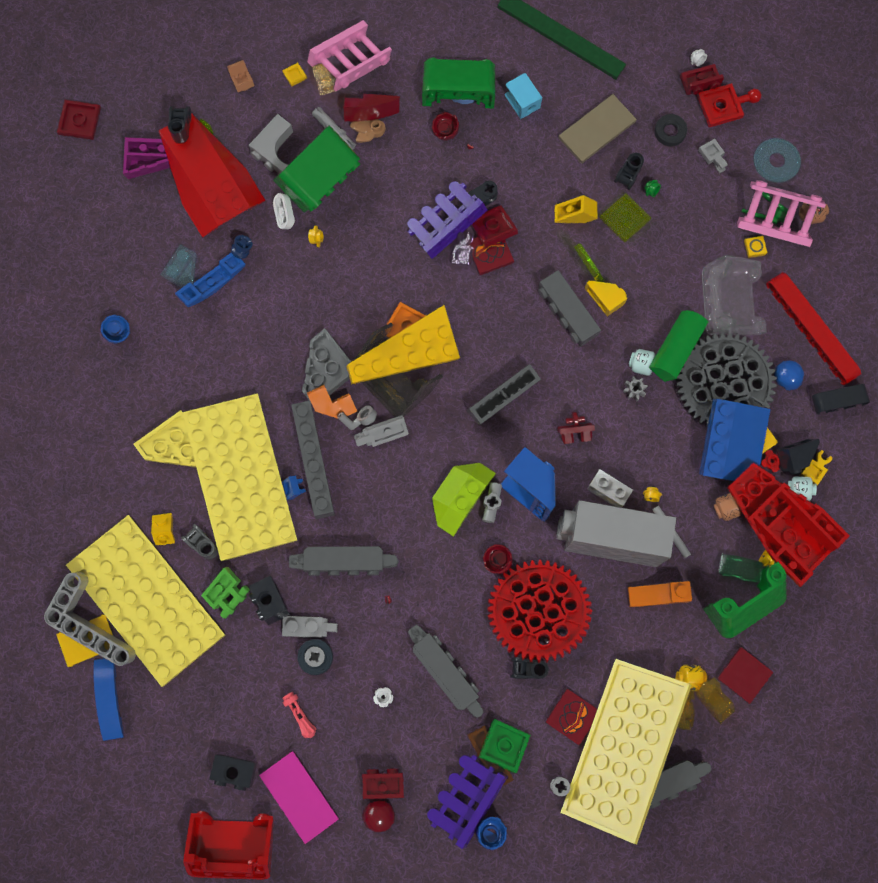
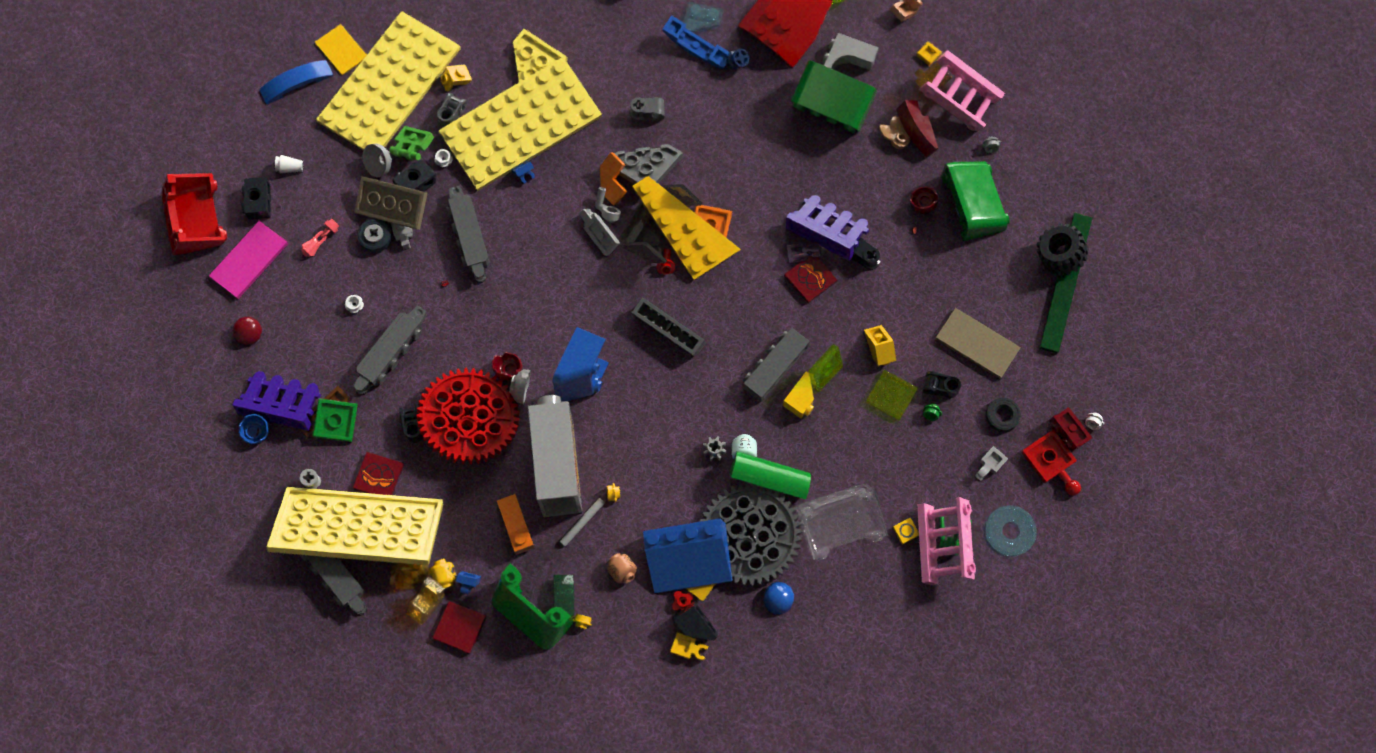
camera: 75 degrees right, 5 degrees down
(83, 626) = (347, 39): light grey beam -> none
(204, 729) = (286, 164): none -> white cone
(233, 637) = (373, 161): none -> light grey piece
(250, 560) = (443, 154): none -> white plate
(267, 346) = (649, 109): none -> dark grey piece
(283, 211) = (780, 87): white plate -> none
(288, 629) = (390, 203): none -> dark tan tile
(312, 460) = (526, 192): dark grey arch -> none
(315, 236) = (771, 119): yellow plate -> none
(325, 121) = (881, 108): light grey pin -> none
(383, 785) = (274, 325): dark red bracket -> none
(407, 51) = (991, 142): none -> light grey plate
(427, 376) = (669, 266): none -> red plate
(460, 494) = (558, 315): lime wedge -> none
(494, 227) = (836, 272): dark red tile -> none
(494, 493) = (552, 346): light grey axle -> none
(523, 96) = (983, 261): medium azure piece -> none
(524, 14) = (1056, 238): none -> black tyre
(525, 550) = (520, 385): none -> light grey piece
(567, 431) = (652, 397): dark red hips -> none
(609, 489) = (604, 449): white brick -> none
(703, 654) = (467, 580): none -> blue tile
(786, 523) = (616, 624): red wedge -> none
(804, 486) = (661, 636): light aqua head -> none
(814, 328) = (835, 609): red beam -> none
(819, 216) = (964, 585): nougat head -> none
(840, 398) = (769, 654): black beam -> none

